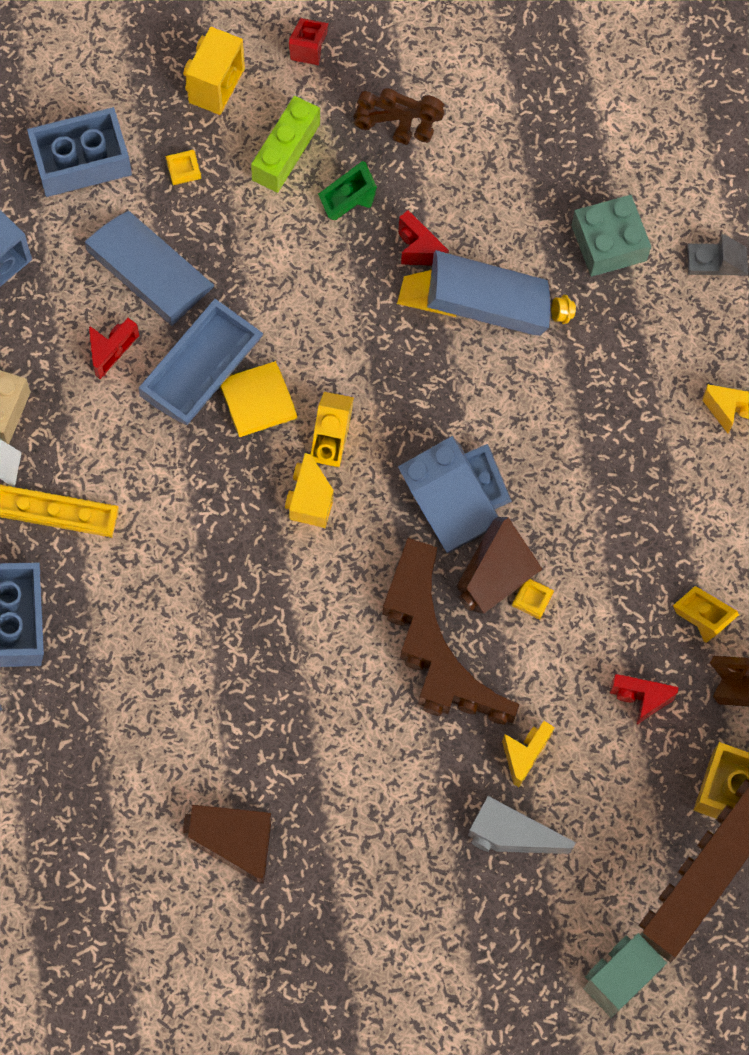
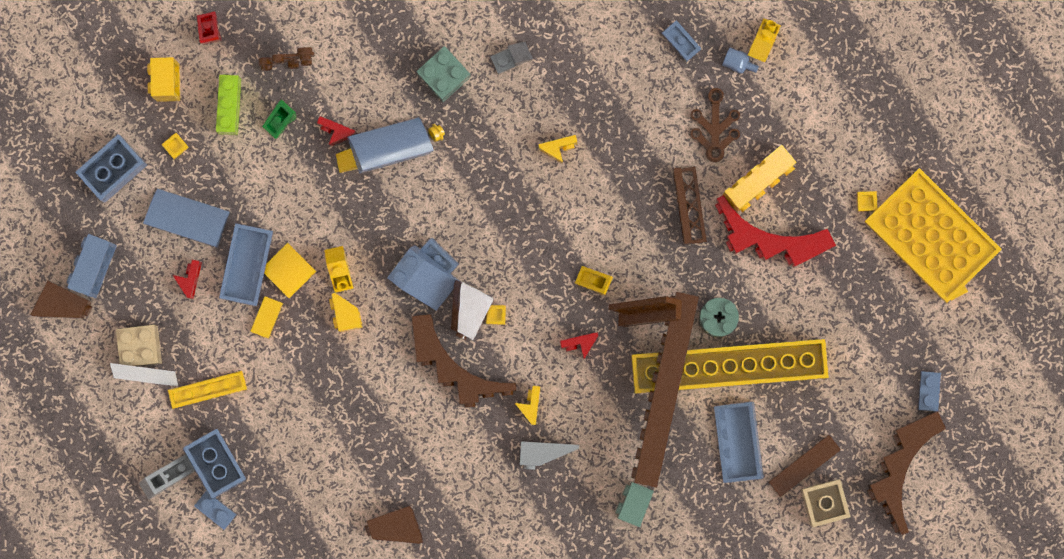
camera: 15 degrees left, 15 degrees up
(192, 449) = (266, 317): none -> yellow tile

